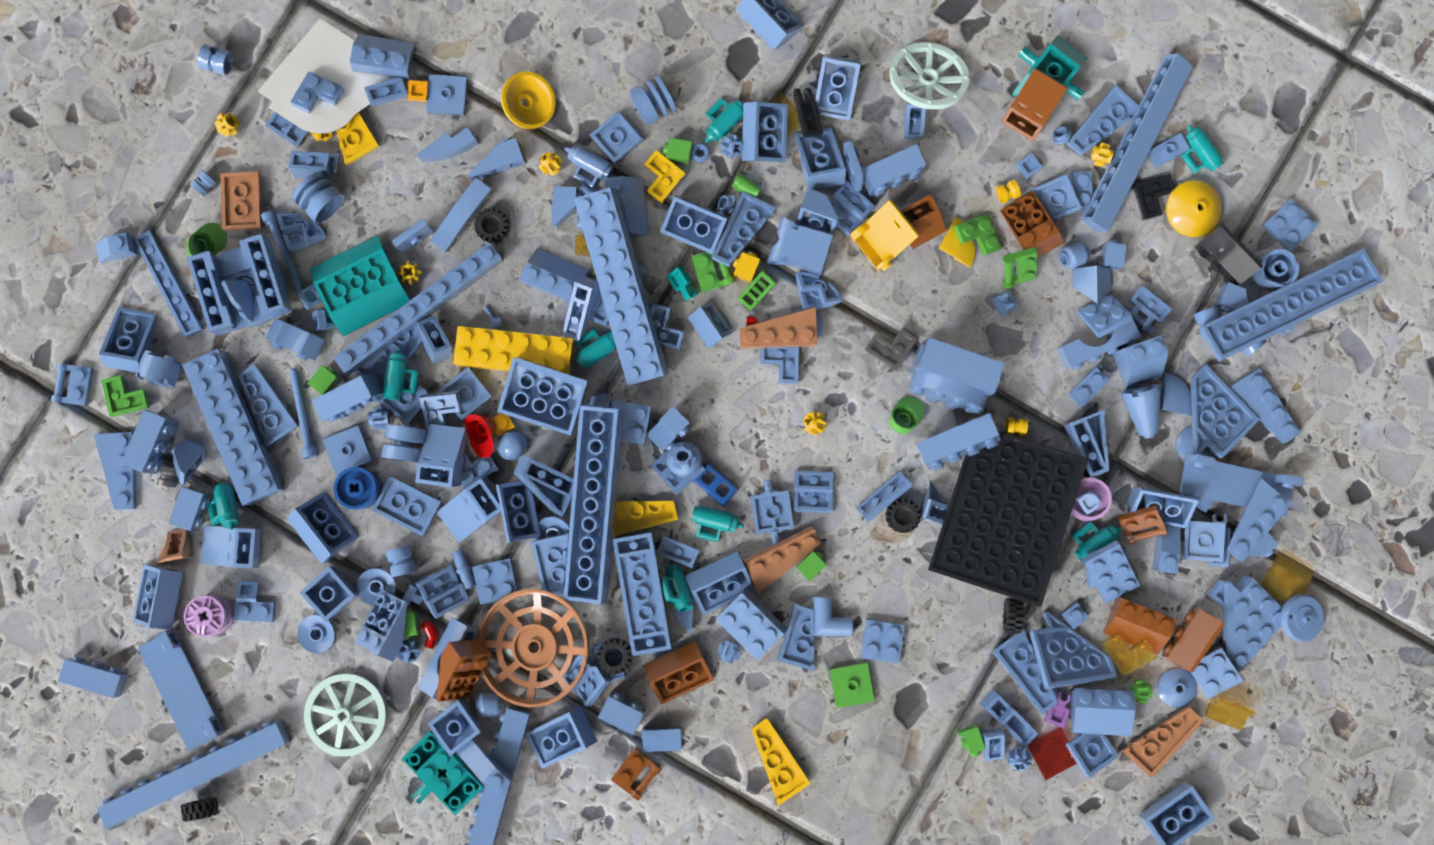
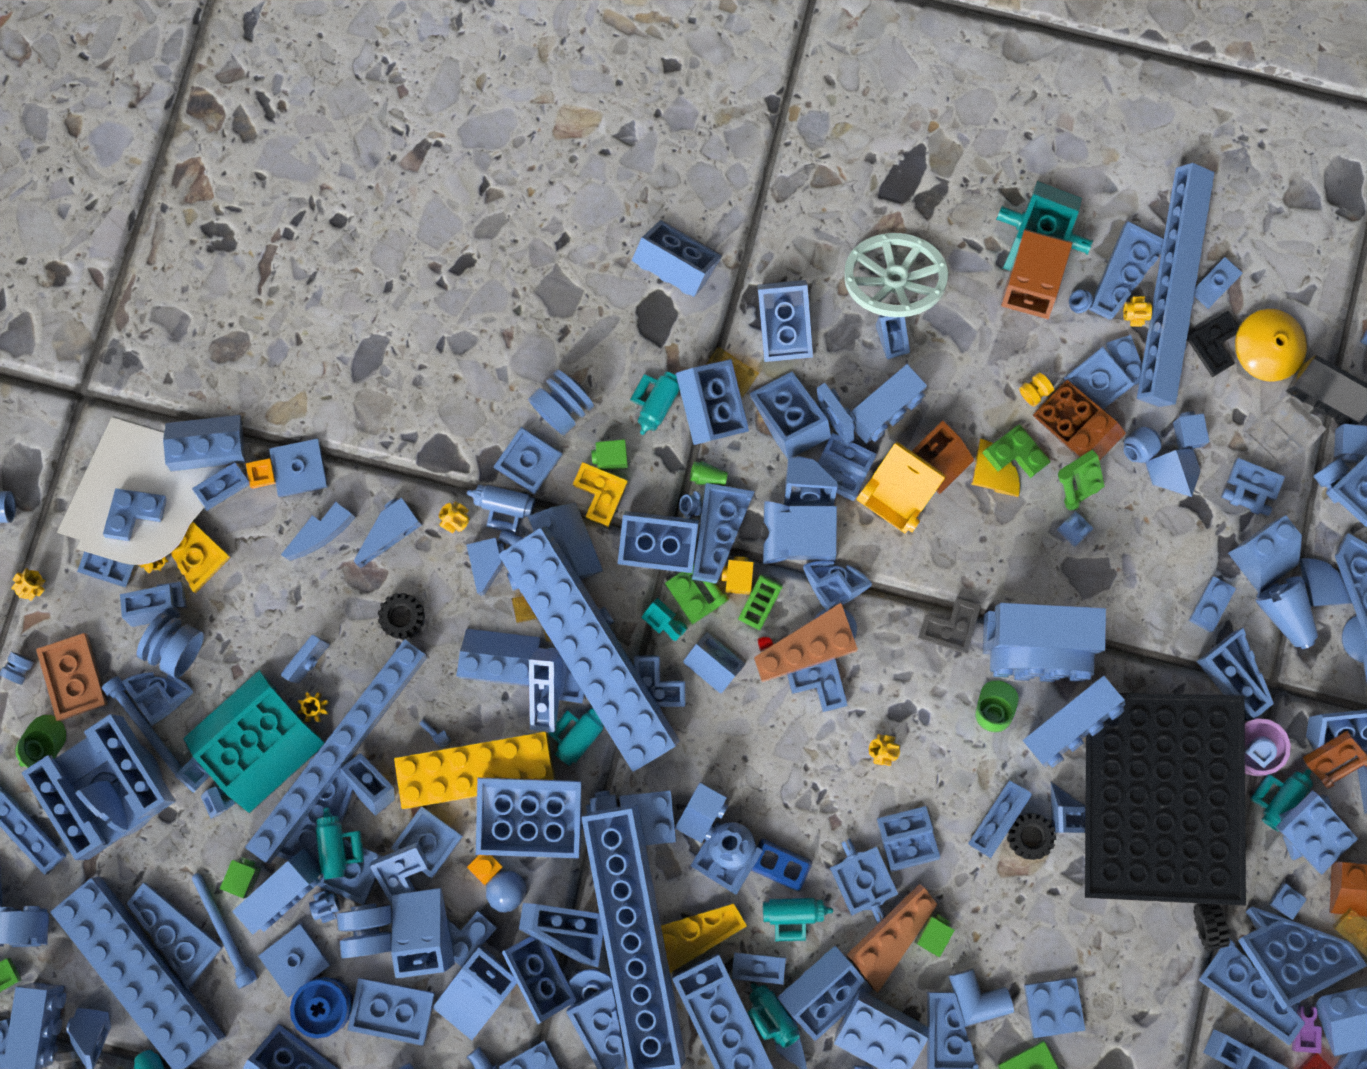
camera: 15 degrees left, 5 degrees down
(295, 339) = (188, 836): medium blue brick -> none
(461, 214) = (358, 613): medium blue slope -> none
(480, 433) = (461, 888): red piece -> none
(537, 96) = (413, 437): yellow dish -> none
(700, 147) = (638, 442): medium blue plate -> none
(731, 146) = (675, 430): medium blue gear -> none
(807, 113) = (759, 363): black hinge -> none
(1016, 427) = (1139, 680): yellow wheel -> none
(1028, 166) = (1052, 350): medium blue plate -> none
(1077, 352) = (1230, 526): medium blue arch -> none
(1105, 315) = (1205, 509): medium blue plate -> none
(1204, 150) = (1260, 269): teal piece -> none

